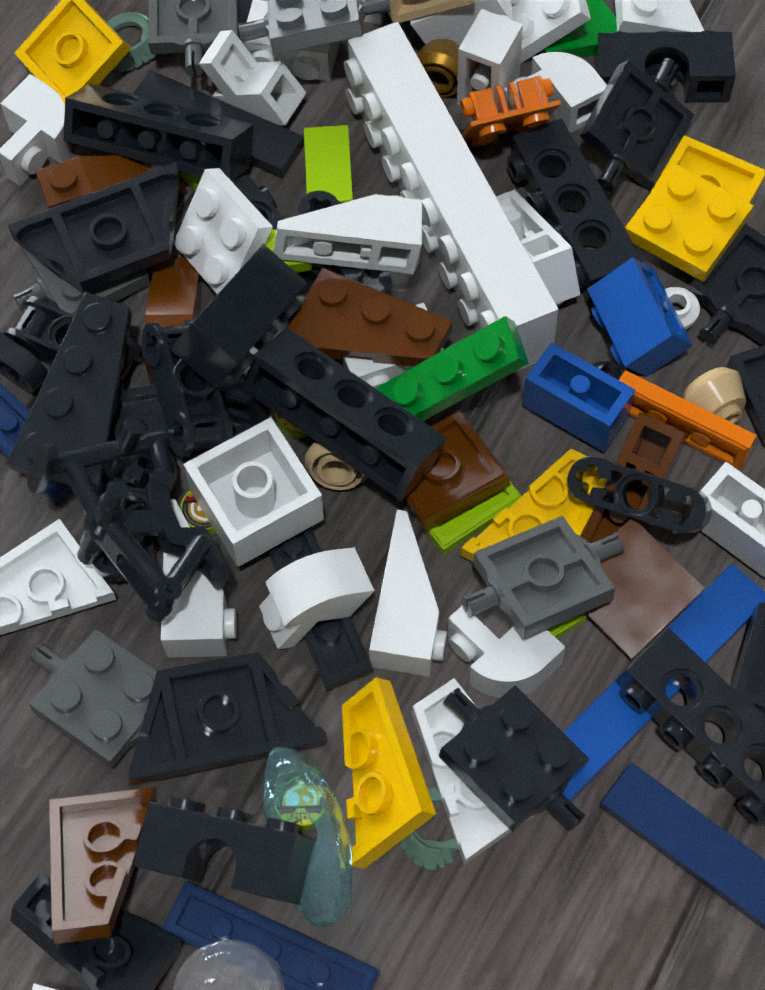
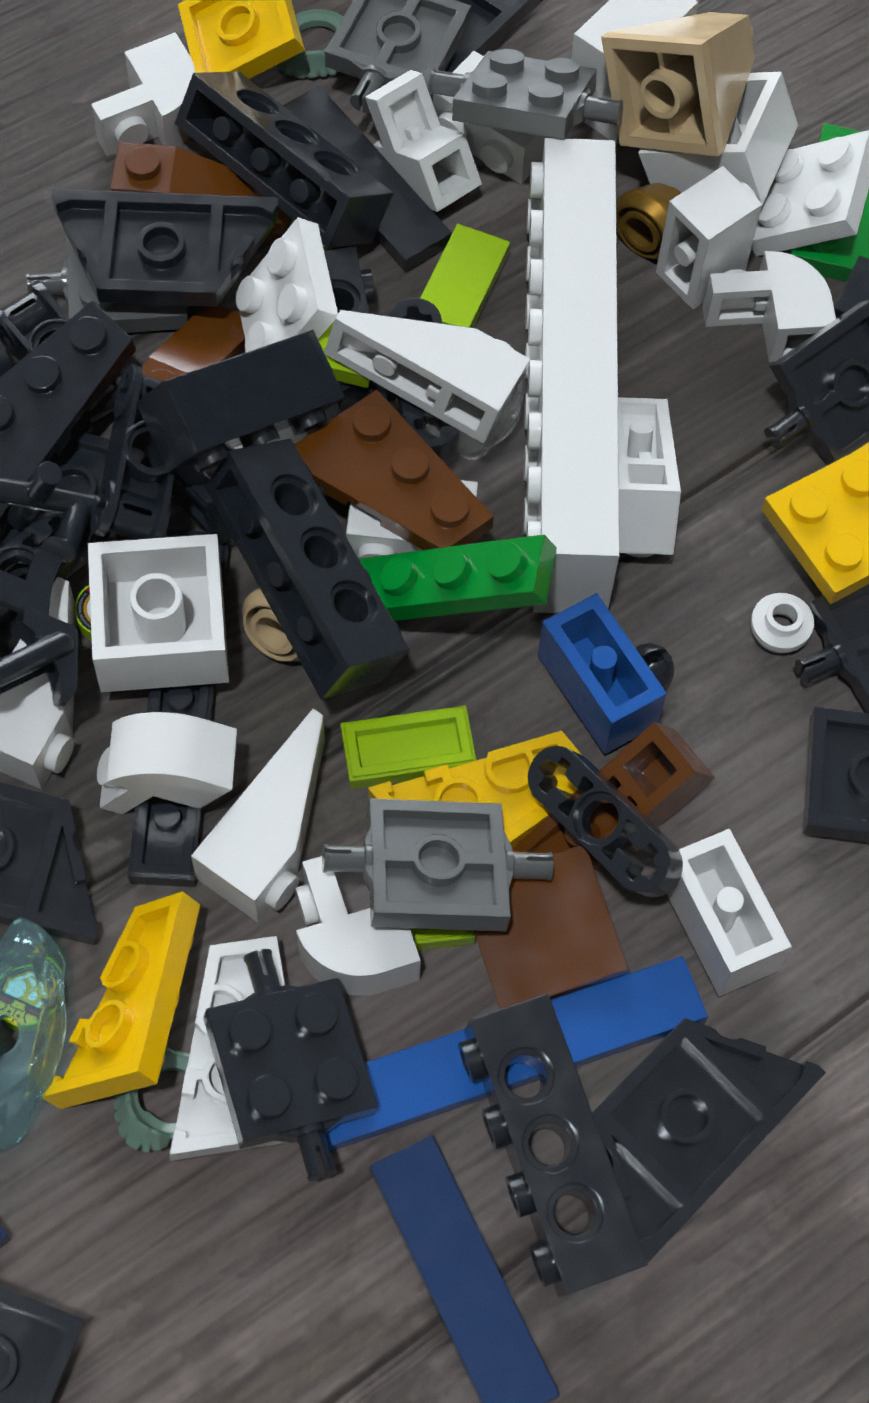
camera: 20 degrees right, 0 degrees up
(459, 477) = (414, 703): reddish brown tile -> none
(489, 123) = (719, 321): orange hinge -> none
(575, 188) = (729, 372): black brick -> none
(638, 318) = (727, 612): blue brick -> none
(707, 431) = (735, 781): orange tile -> none
(719, 393) = (769, 749): tan cone -> none

